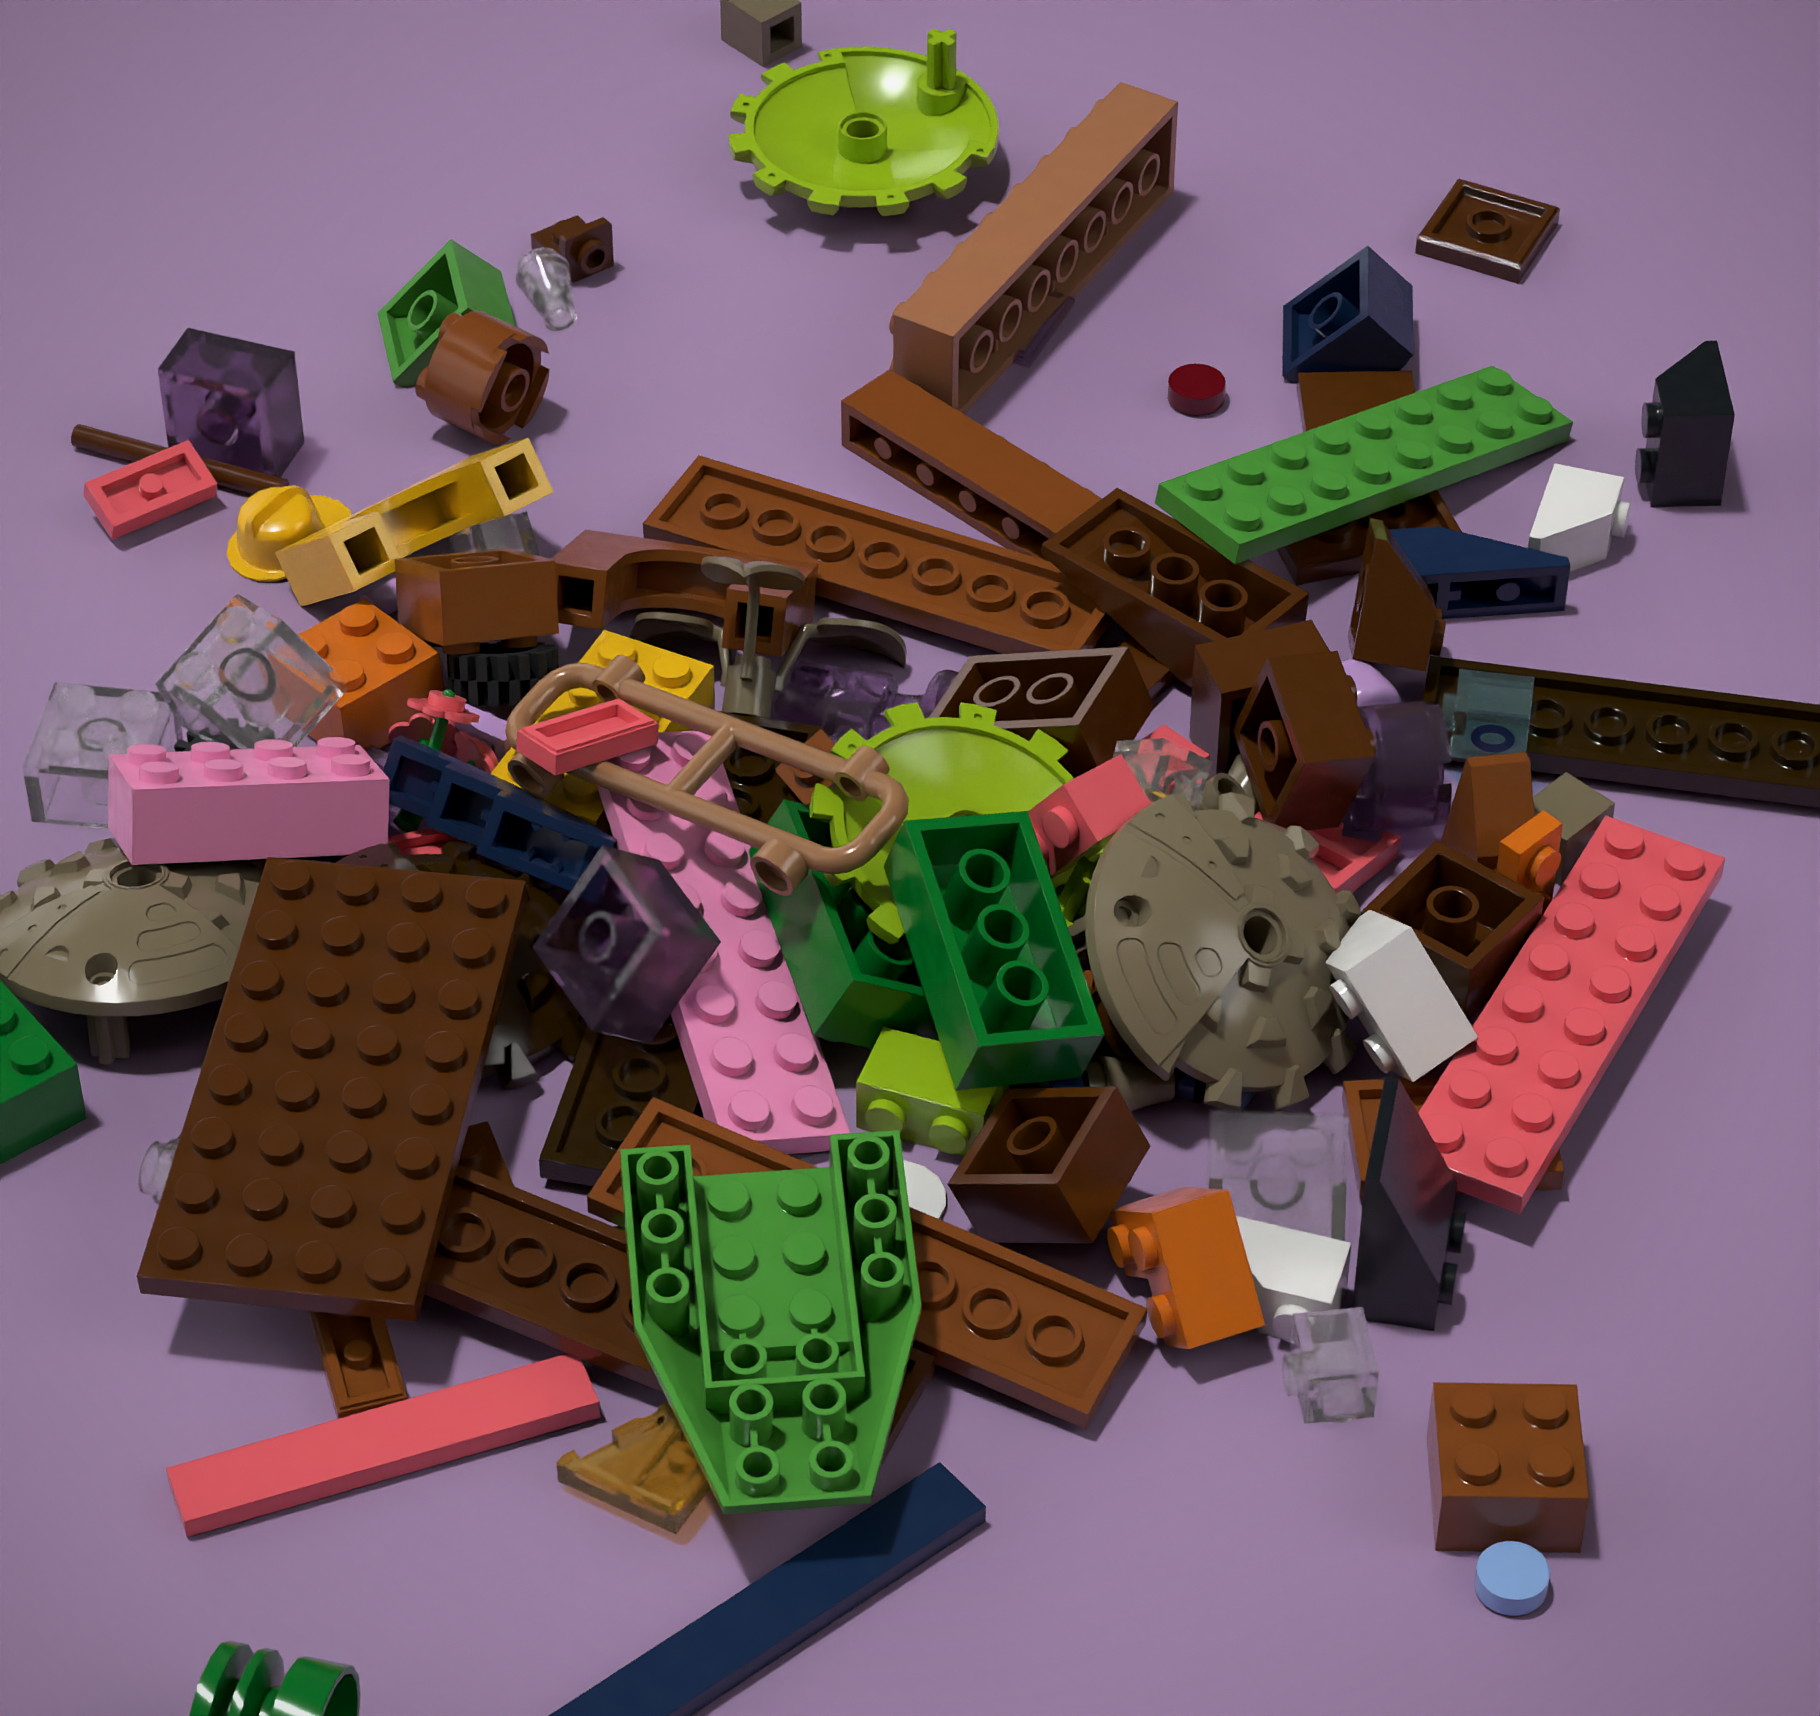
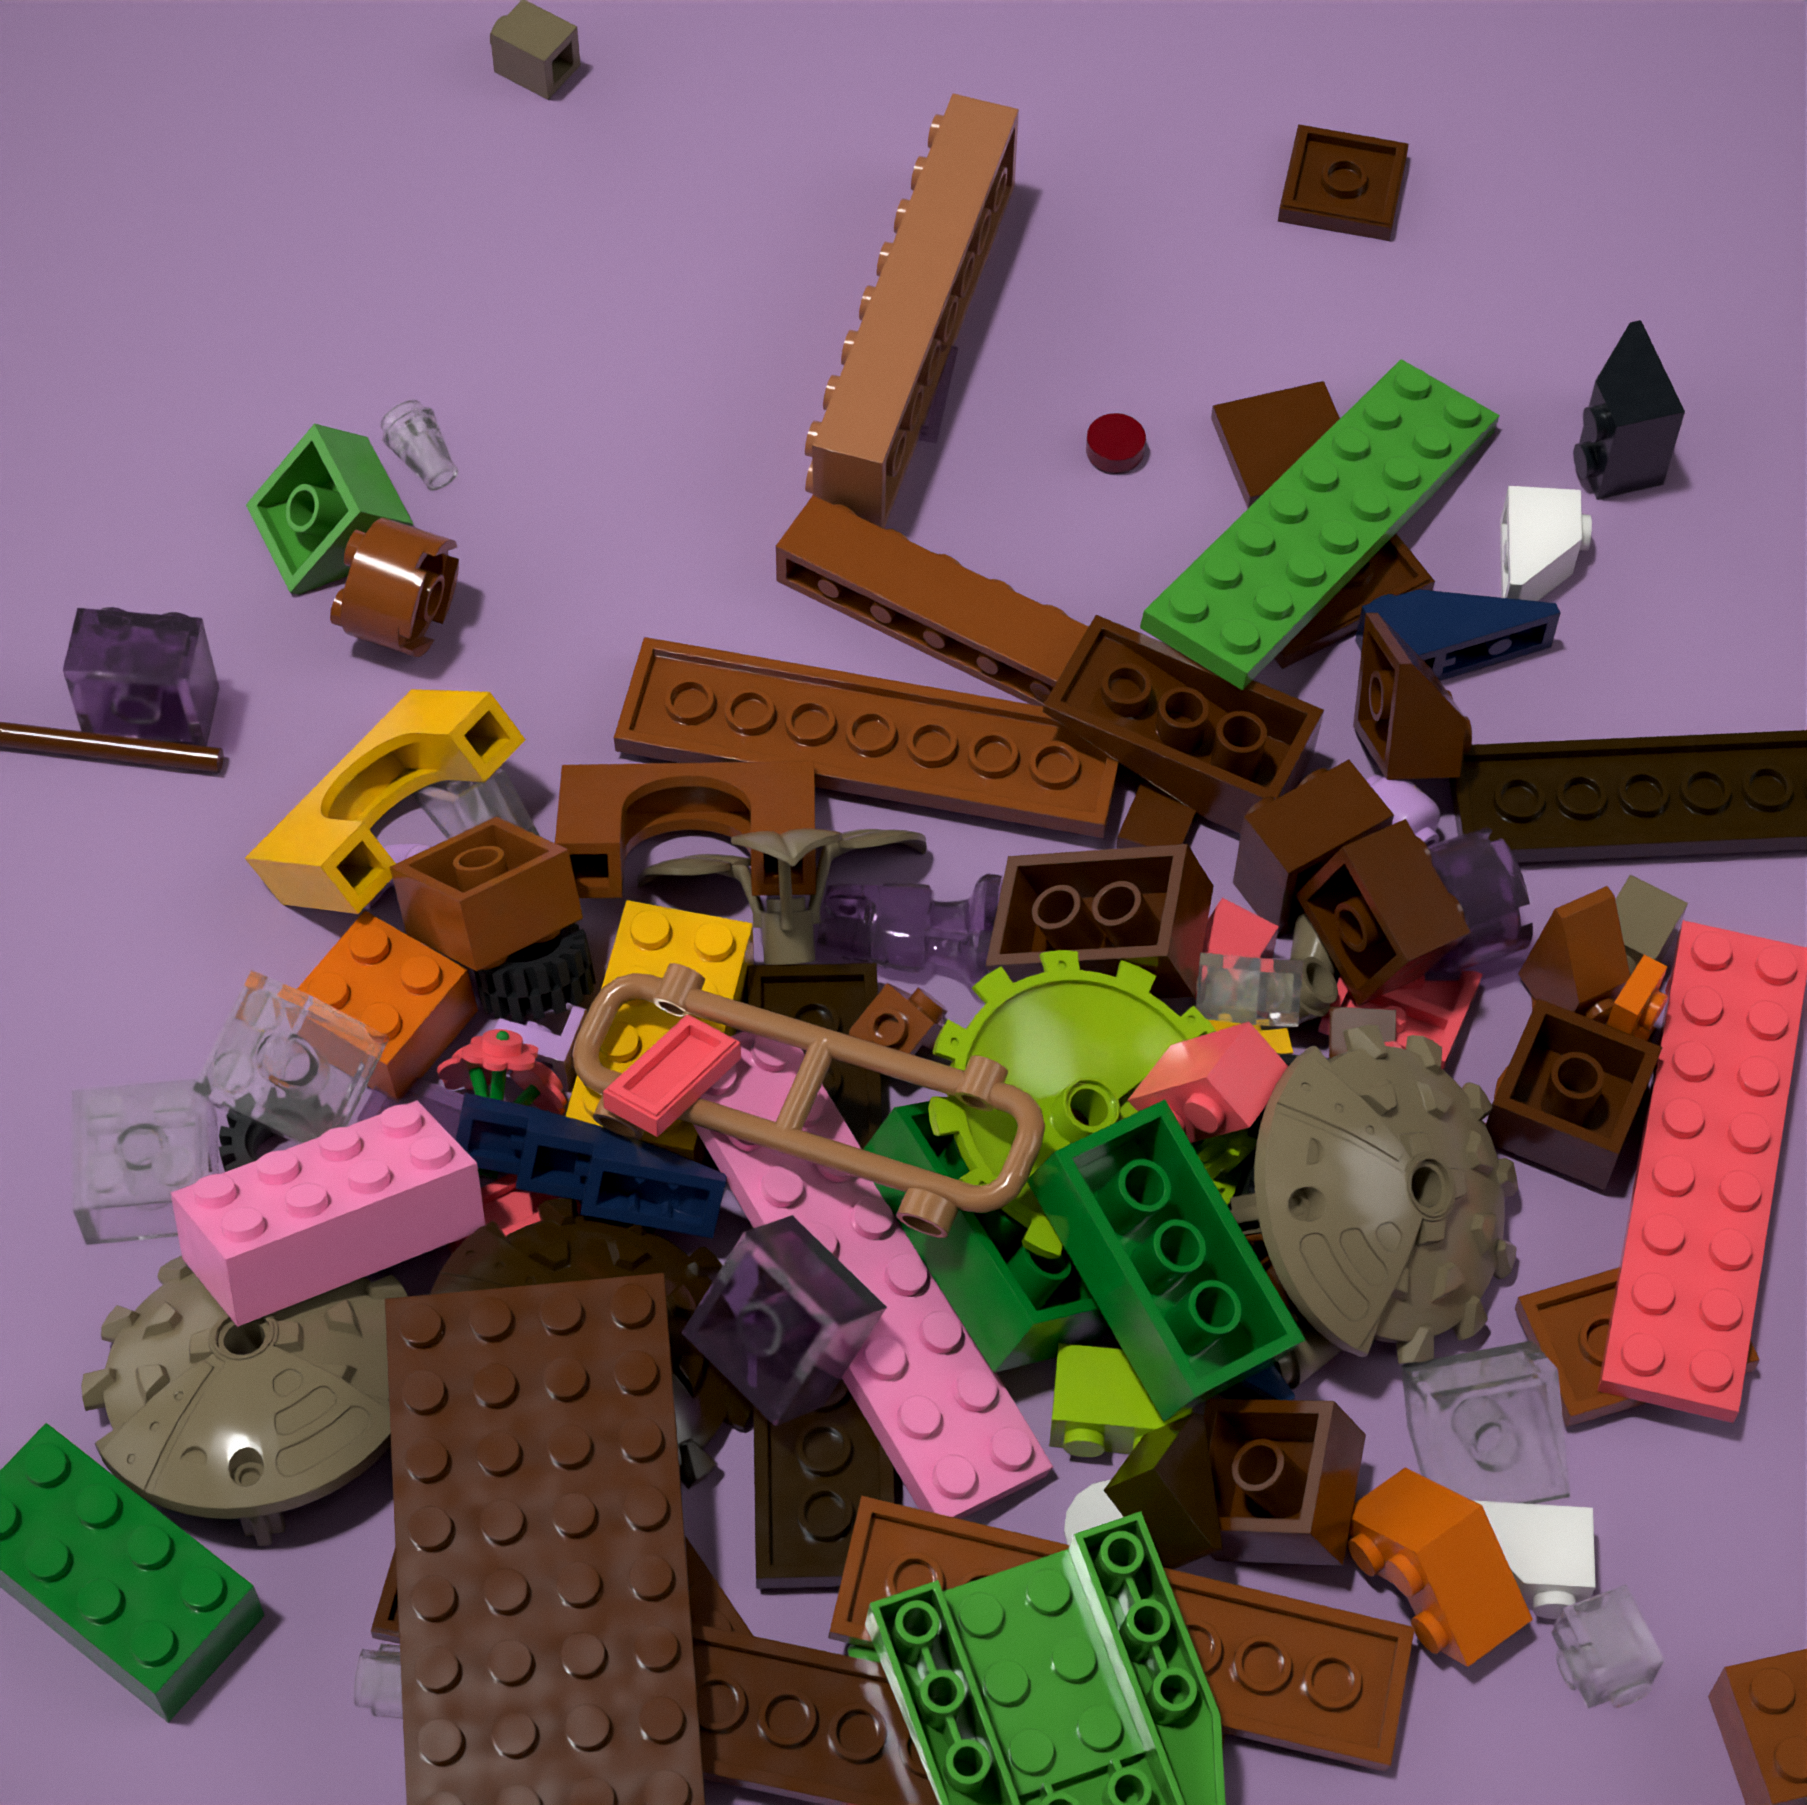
camera: 15 degrees left, 15 degrees up
(150, 489) = (82, 794): coral plate -> none
(274, 521) = (237, 812): yellow piece -> none
(583, 244) = (428, 378): reddish brown bracket -> none
(867, 127) = (693, 179): lime piece -> none
(942, 1144) = (1174, 1489): none -> dark brown slope
(1350, 320) = (1247, 336): dark blue slope -> none
(1397, 996) = (1556, 1202): white slope -> none
(1406, 1220) = (1635, 1474): black slope -> none
(1488, 713) = (1541, 821): clear light blue brick -> none

